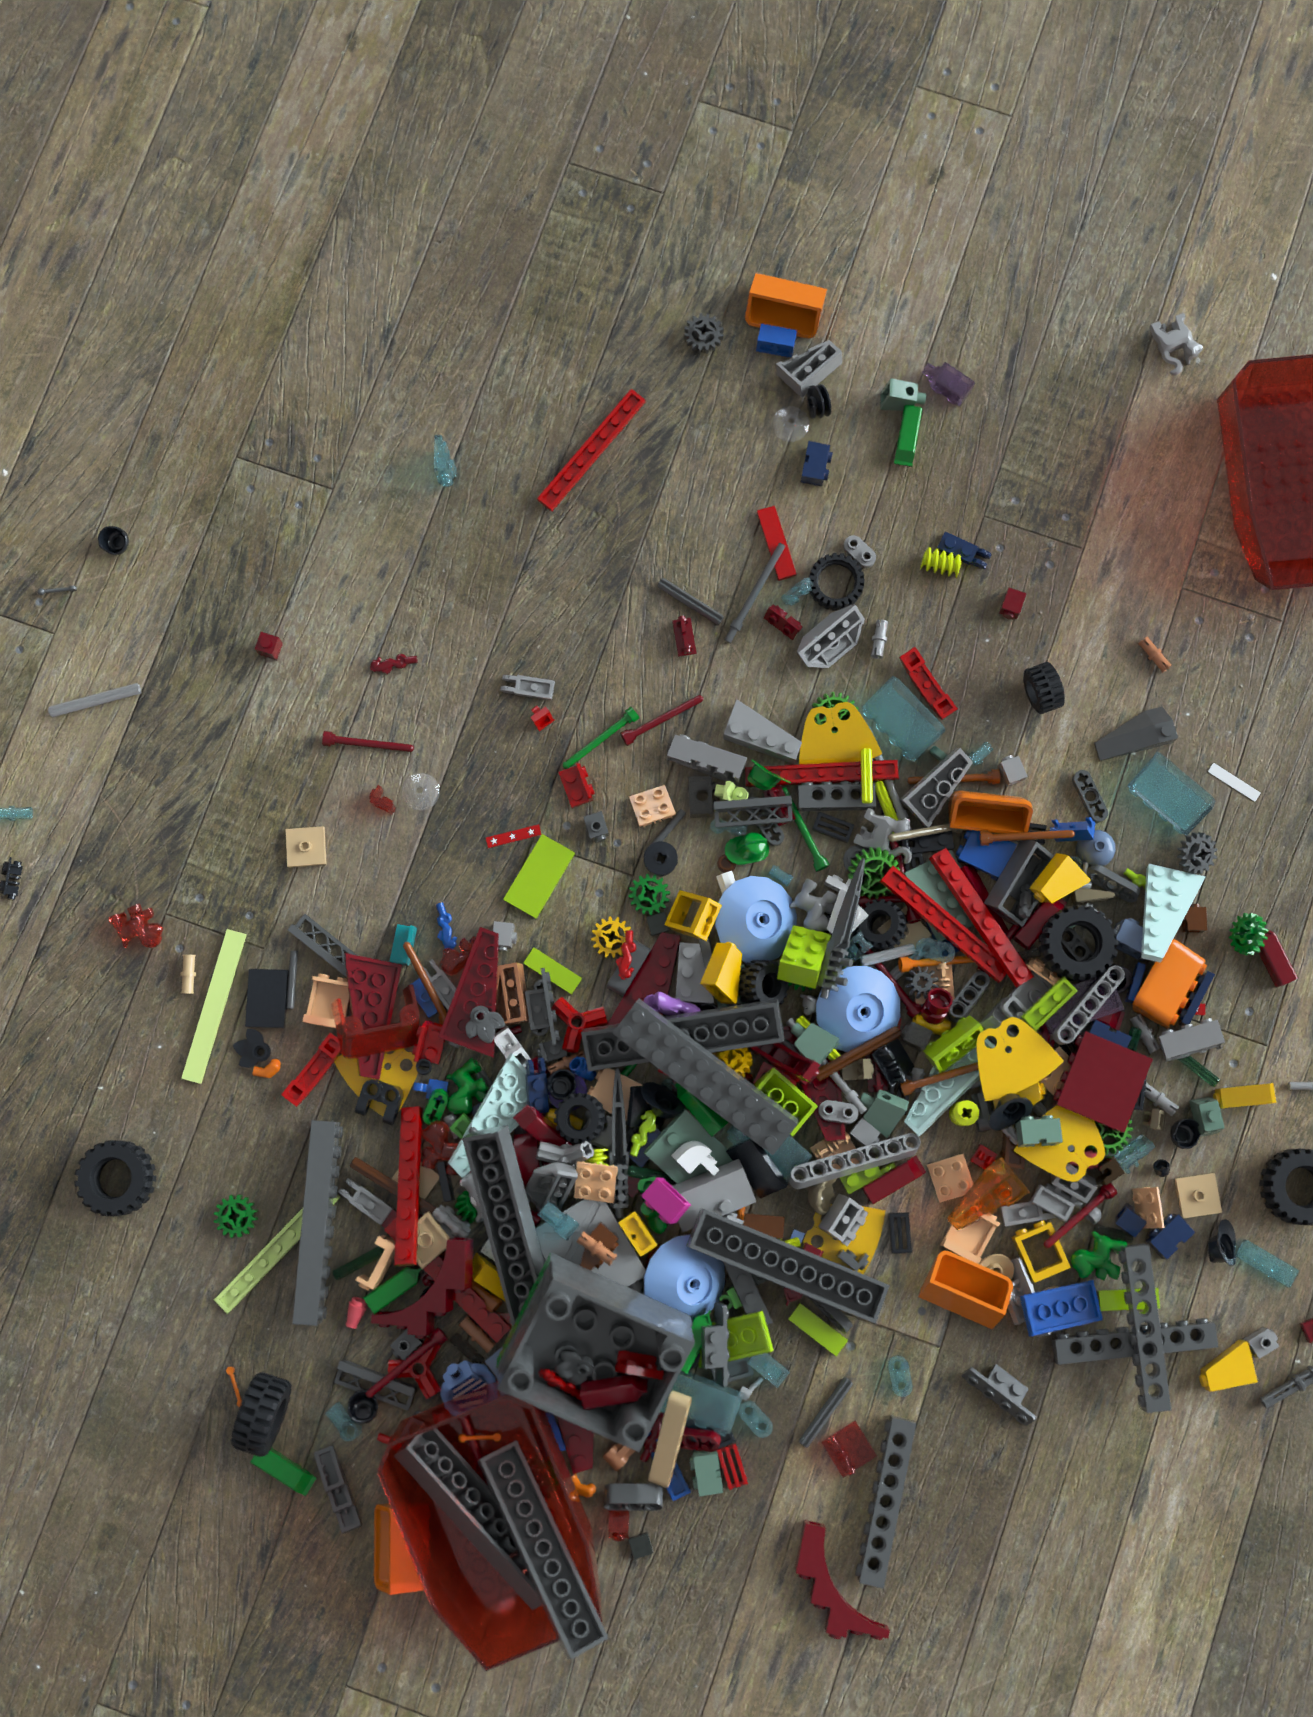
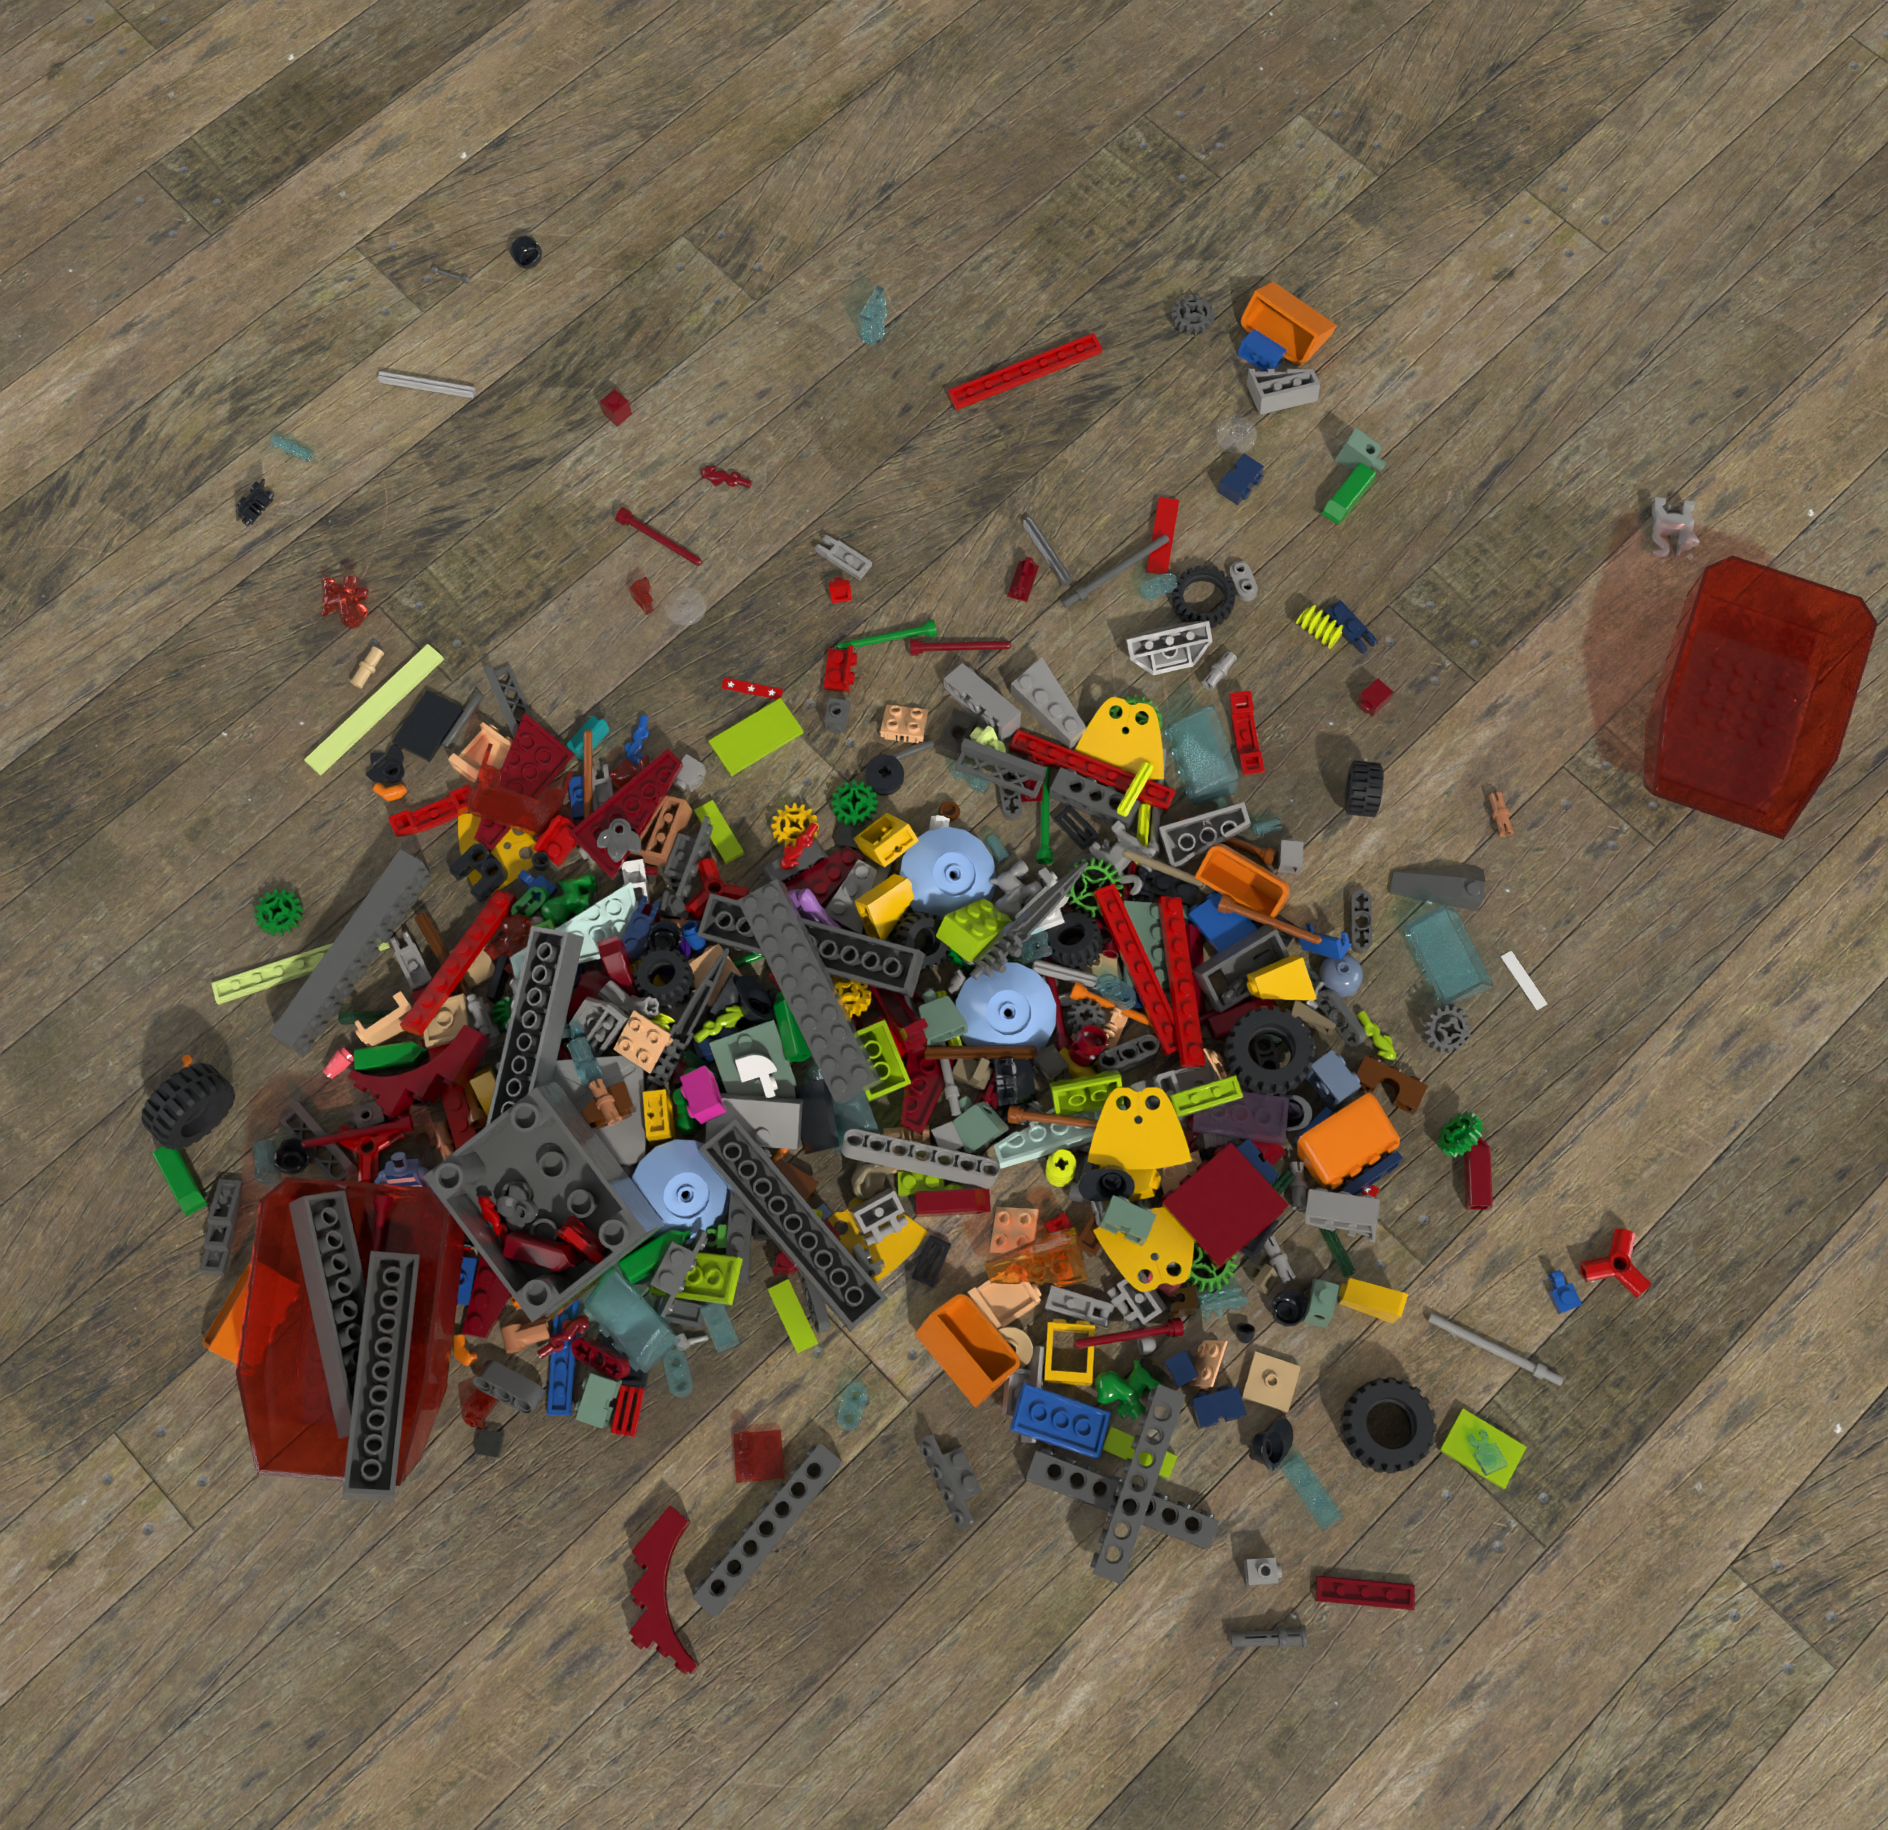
camera: 25 degrees right, 10 degrees down
(90, 1171) = (172, 798): black tyre -> none
(306, 847) = (546, 605): tan plate -> none
(496, 1437) = (368, 1228): orange hinge -> none
(670, 1439) = (576, 1342): tan beam -> none
(747, 849) = (977, 806): green piece -> none
(763, 778) = (1027, 742): green piece -> none
(776, 617) = (1125, 603): dark red hinge -> none
(818, 401) = (1274, 420): black piece -> none
(825, 1412) = (754, 1405): dark grey axle -> none
(838, 1112) = (928, 1100): light grey plate -> none
(949, 382) = (1417, 464): clear purple hinge -> none
(1052, 1203) = (1107, 1307): light grey tile -> none
(1082, 1012) = (1254, 1108): light grey beam -> none
(1165, 906) = (1383, 1061): light aqua wing -> none
(1229, 1369) = (1211, 1582): yellow slope -> none

